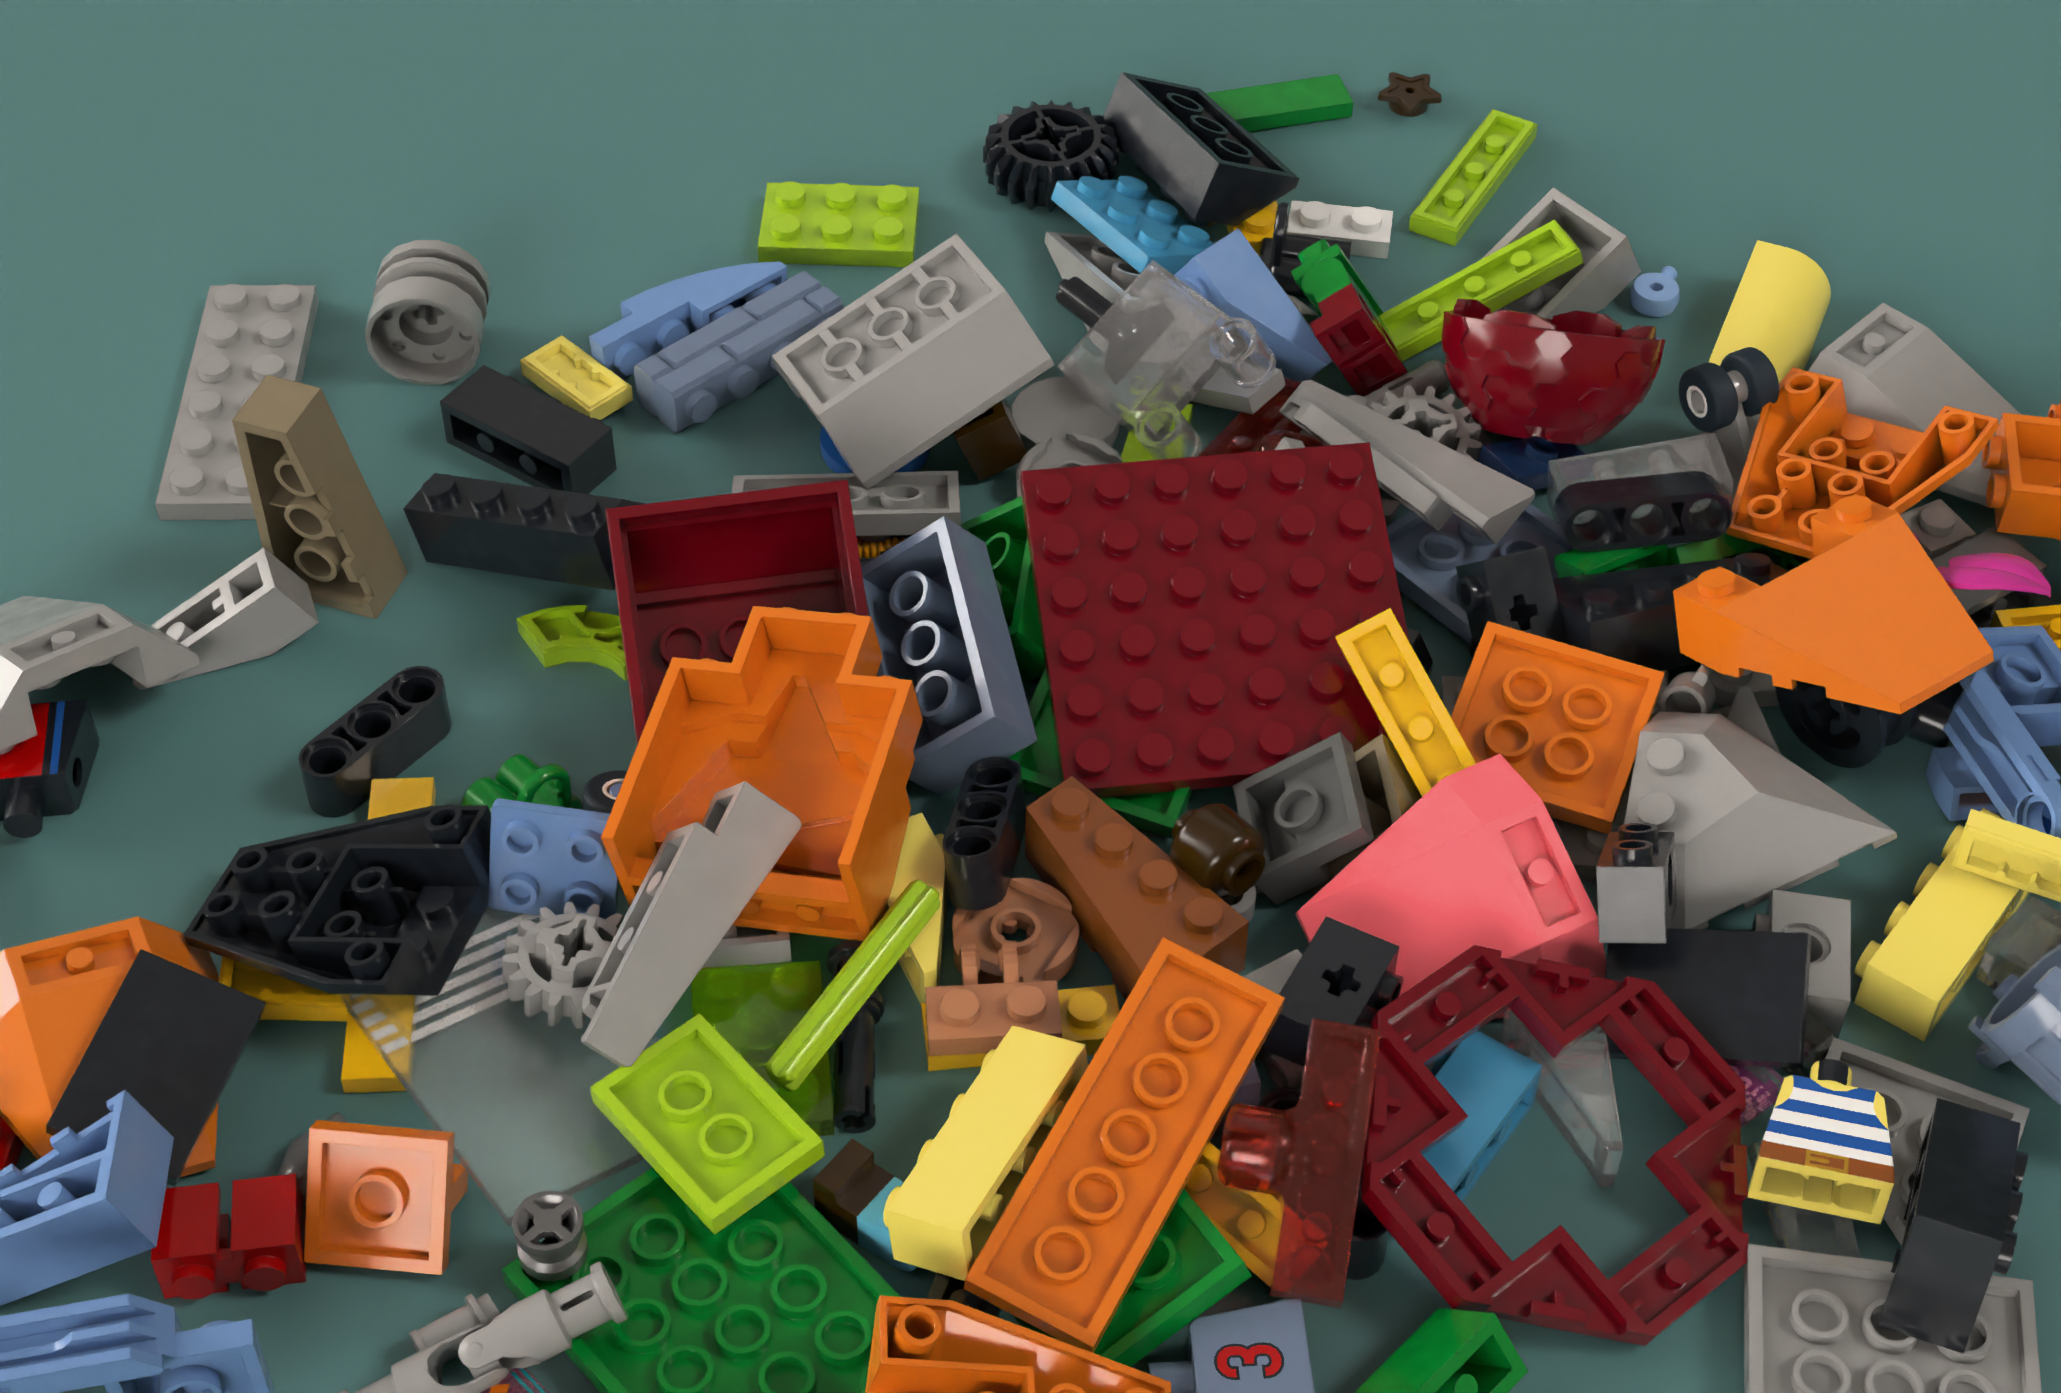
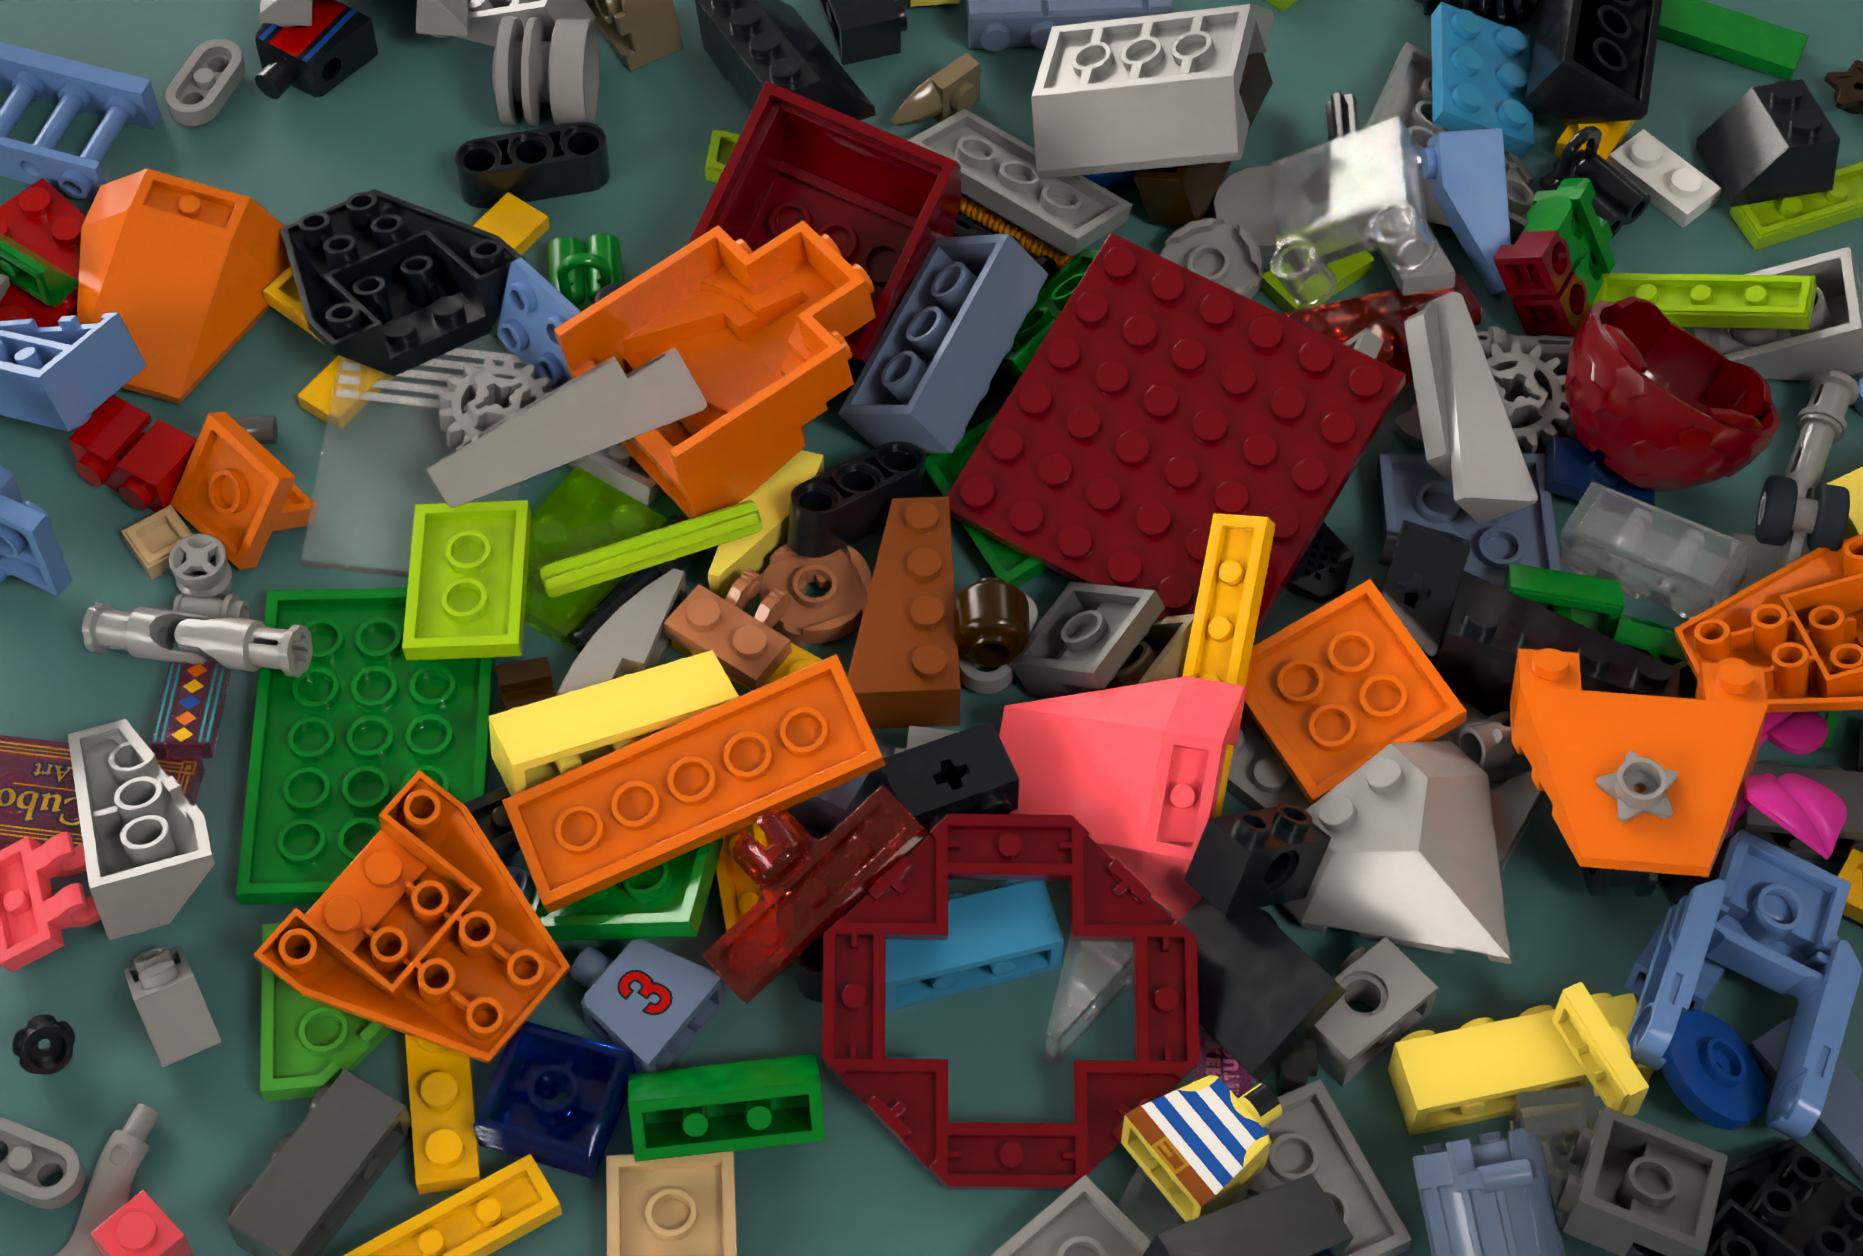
camera: 40 degrees right, 10 degrees up
(169, 1045) = (186, 307): black tile -> none
(311, 653) = (542, 72): none -> light grey wheel
(327, 1304) = (154, 539): none -> tan tile
(393, 1283) = (205, 555): none -> light grey wheel
(551, 1217) = (290, 581): flat silver wheel -> none
(708, 464) = (942, 94): none -> dark tan plate
(907, 1087) = (631, 637): none -> light grey slope
(1404, 156) = (1771, 145): none -> black slope
(1638, 313) = (1820, 427): none -> light grey pin
(1664, 525) = (1640, 576): black beam -> none
(1889, 612) = (1641, 772): none -> light grey plate

